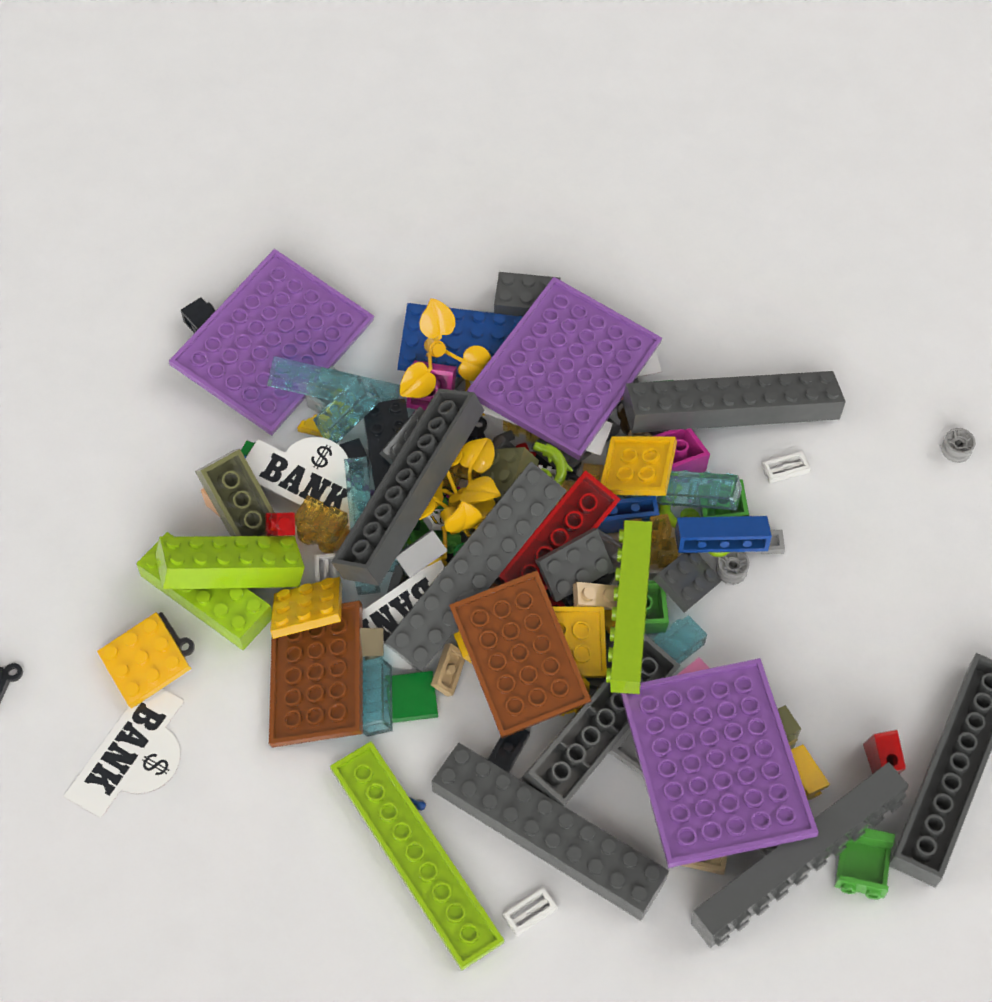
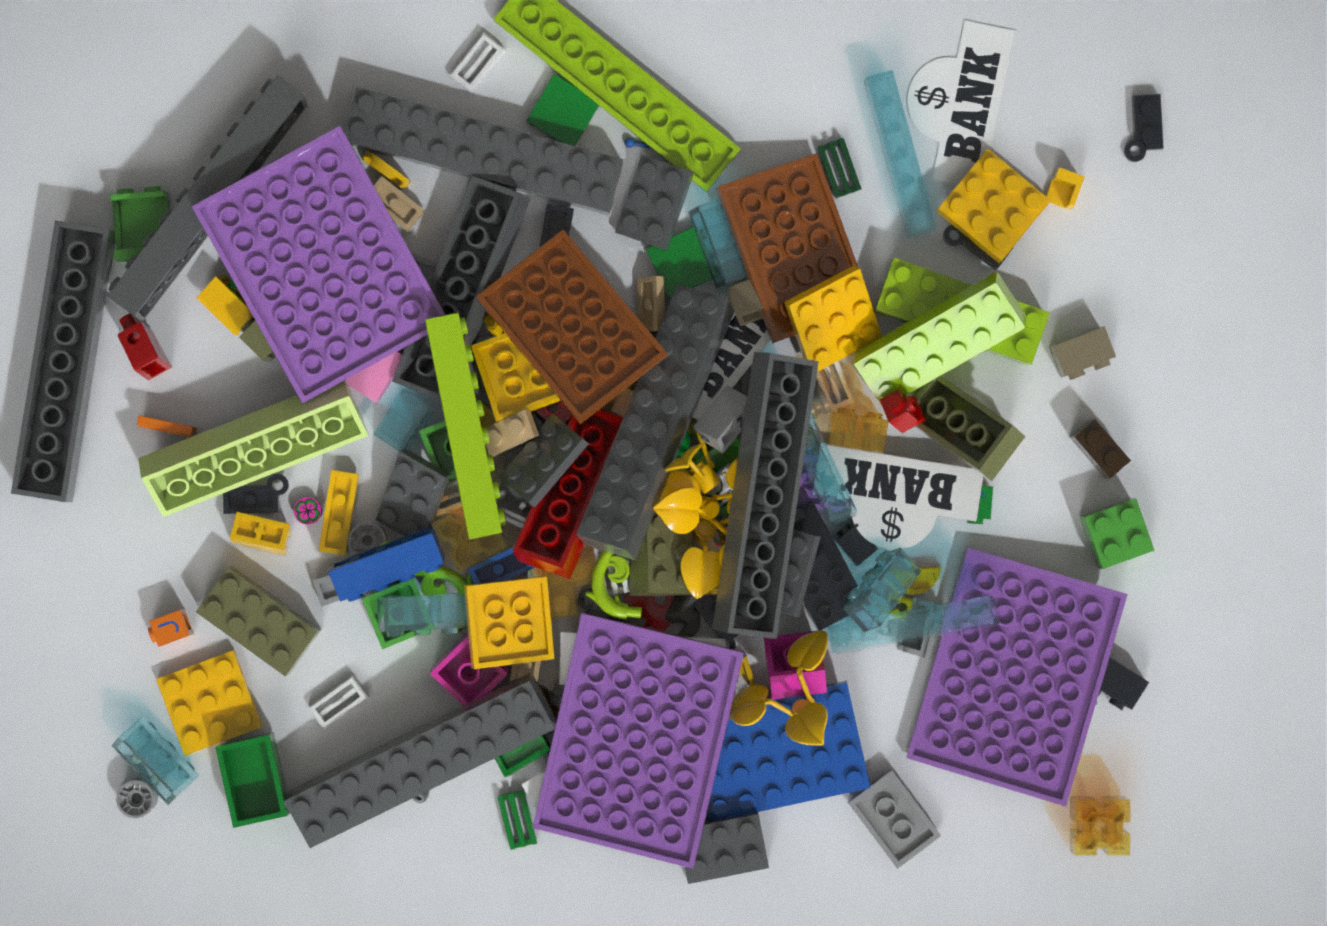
camera: 170 degrees right, 30 degrees up
(81, 657) = (1064, 188): none -> yellow panel
(124, 536) = (1083, 352): none -> dark tan brick
(143, 467) = (1100, 449): none -> dark brown brick
(158, 409) = (1117, 533): none -> bright green brick
(201, 722) = (899, 154): none -> clear light blue brick
(255, 237) = (1112, 837): none -> clear yellow brick
(255, 711) = (847, 190): none -> dark green tile
(397, 284) = (894, 818): none -> light grey plate
(417, 745) = (654, 202): none -> dark grey plate
(470, 846) = (563, 111): none -> green tile
(636, 812) = (399, 206): none -> tan plate
(636, 841) = (385, 169): none -> yellow tile
(672, 344) = (522, 842): none -> green tile
(750, 593) = (338, 512): none -> yellow plate
(775, 603) = (307, 510): none -> tile
(816, 650) = (251, 448): none -> yellowish green brick
(817, 622) = (255, 498): none -> black hinge
(818, 591) = (260, 533): none -> yellow hinge
(835, 533) = (258, 621): none -> olive brick
(865, 428) = (252, 779): none -> green piece
(877, 695) = (166, 426): none -> orange tile
(887, 494) = (209, 702): none -> yellow plate
(906, 549) = (170, 628): none -> orange brick
(938, 462) = (155, 760): none -> clear light blue brick

